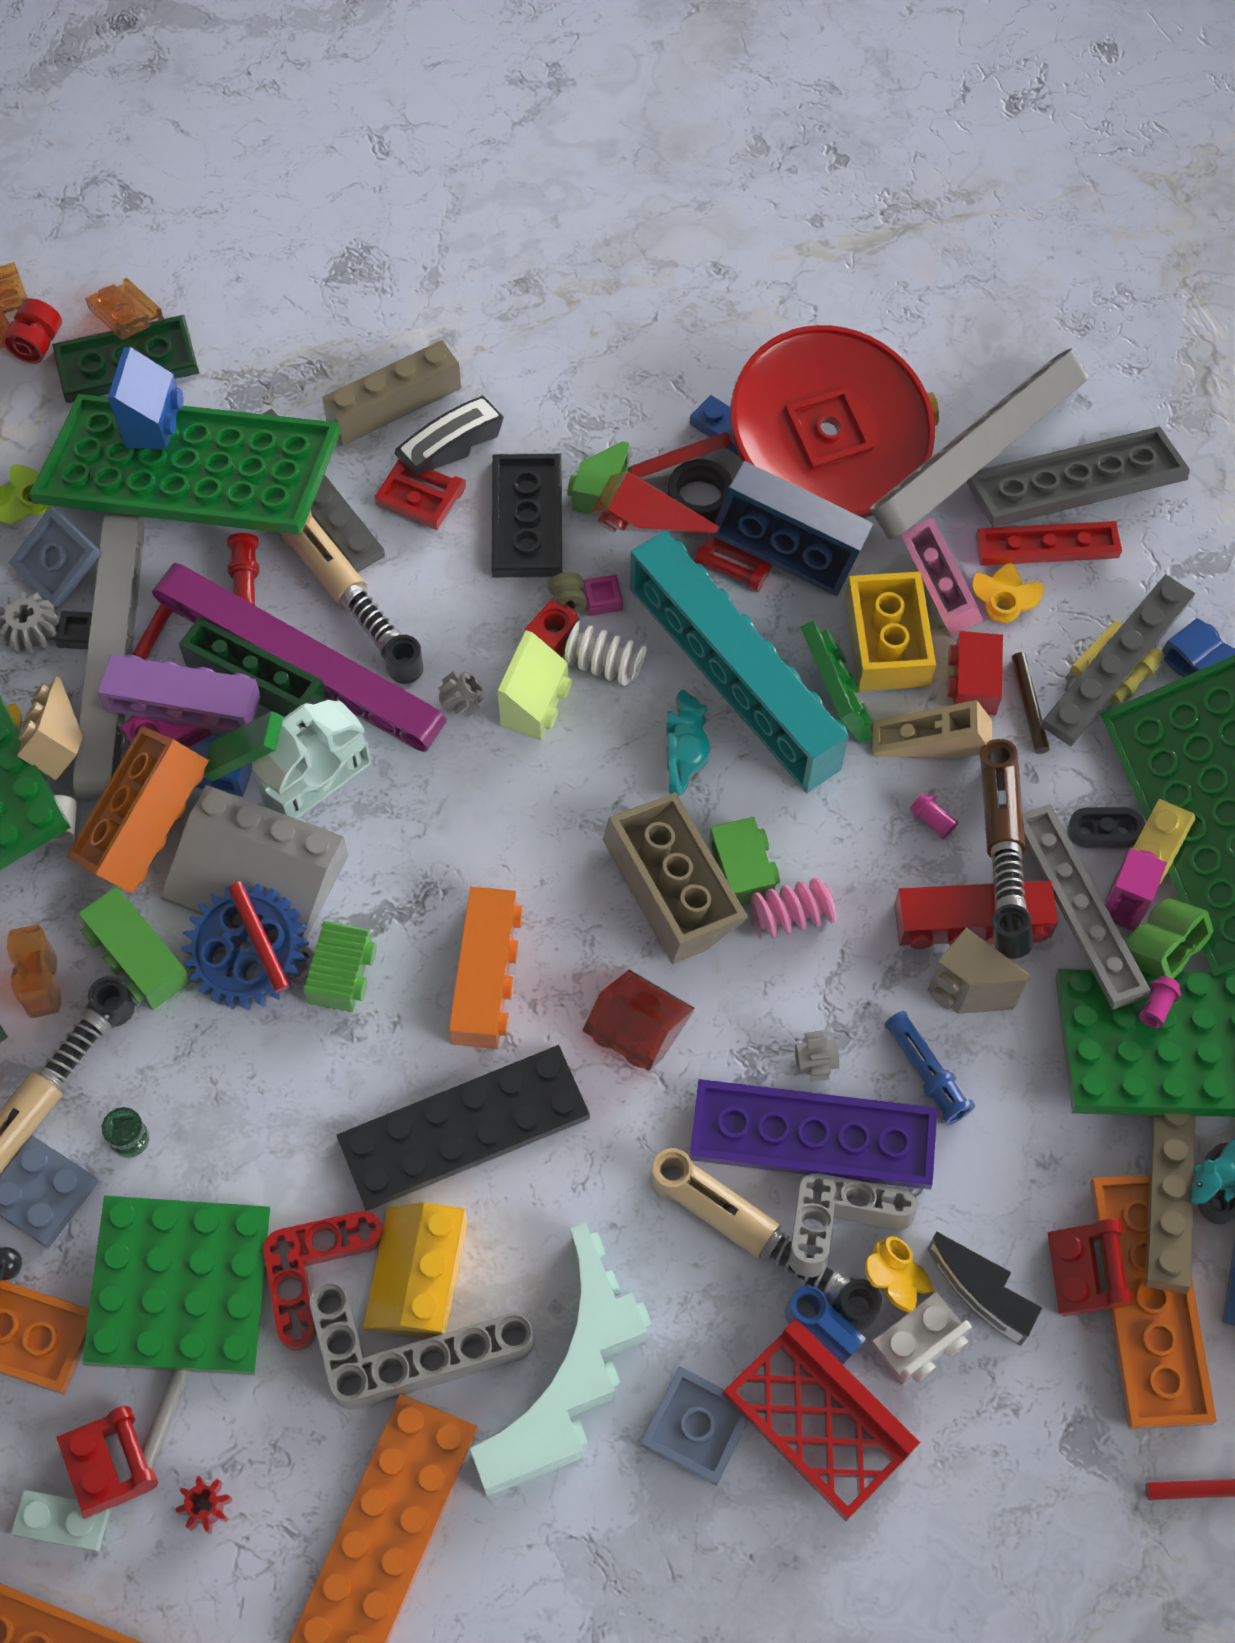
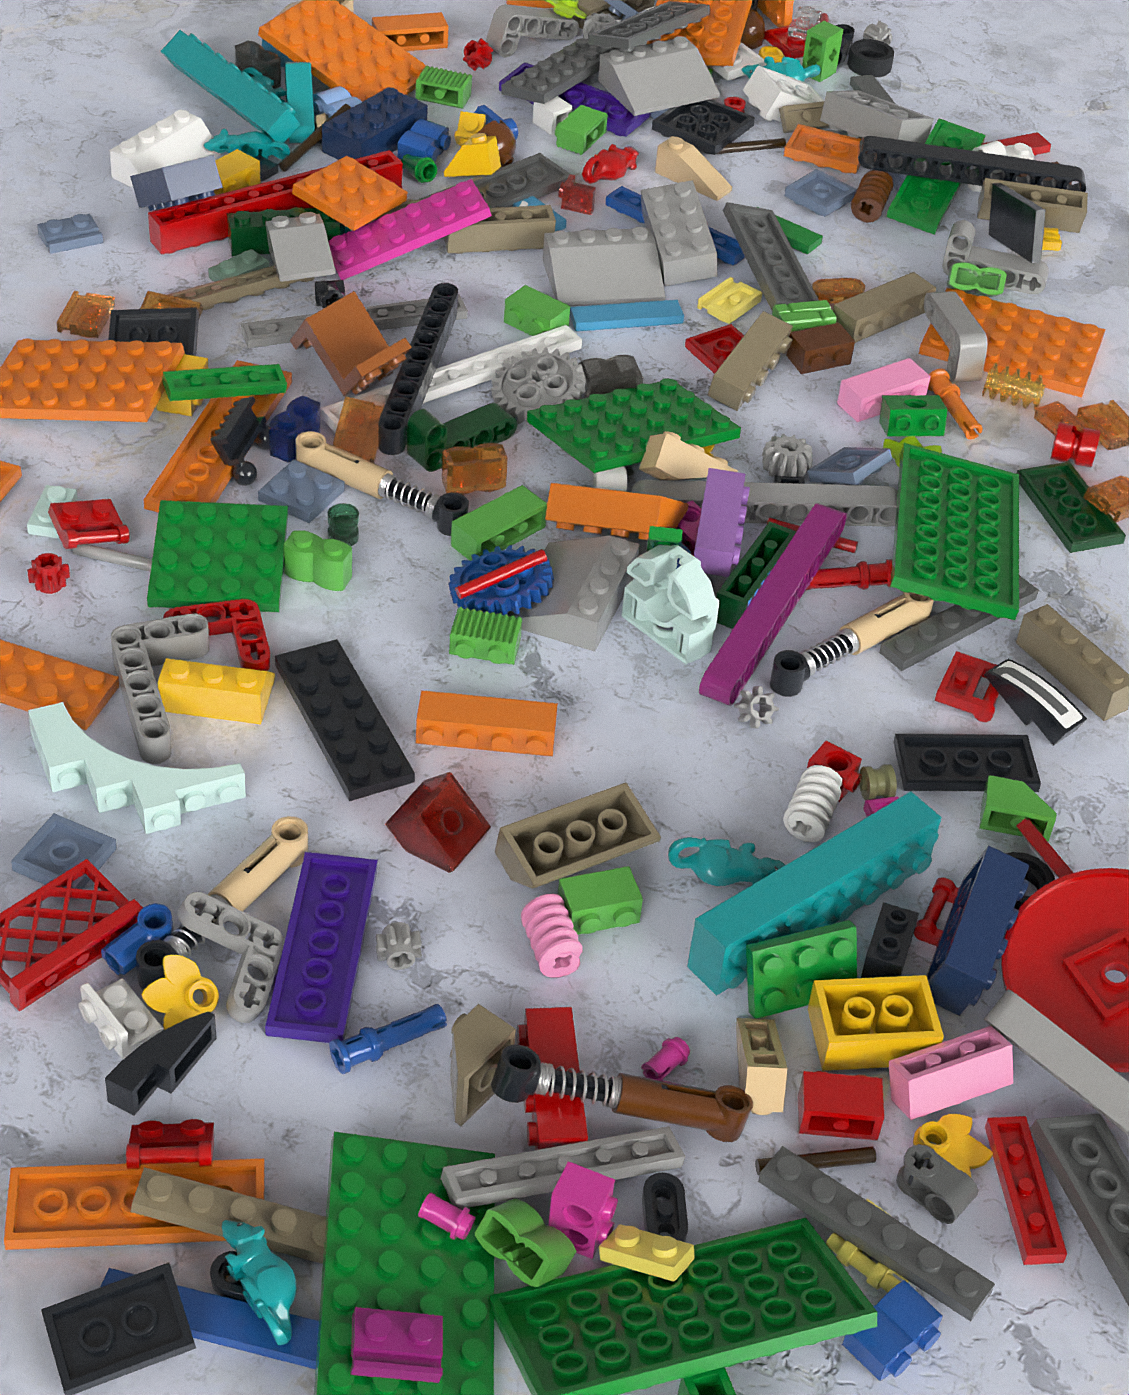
camera: 85 degrees right, 20 degrees down
(144, 401) = (1004, 485): slope -> none
(203, 1151) = (318, 560): none -> bright green brick
(532, 688) = (766, 745): yellowish green slope -> none
(638, 506) = (970, 810): red slope -> none
(787, 606) = (890, 942): none -> black brick
(1053, 610) = (937, 1186): none -> dark grey piece

